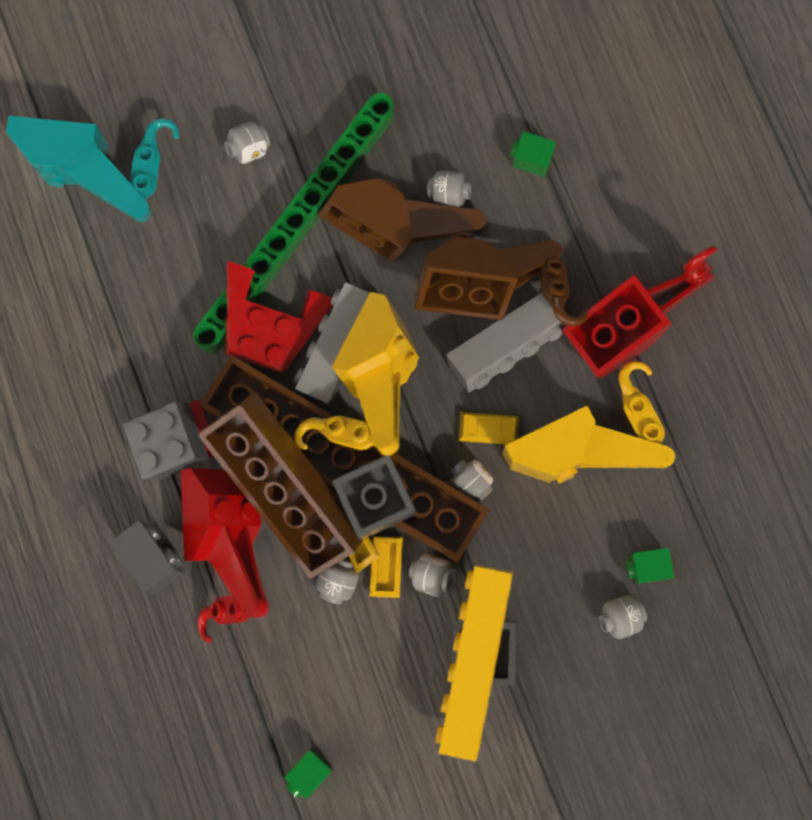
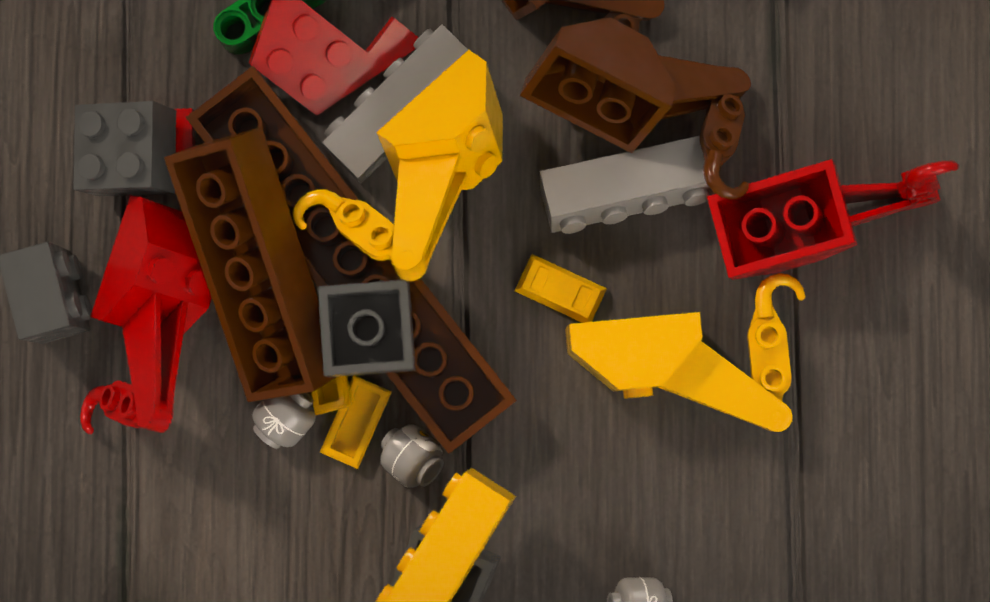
camera: 15 degrees right, 5 degrees up
(471, 480) = (510, 351): light grey head -> none
(650, 566) = (702, 553): green brick -> none

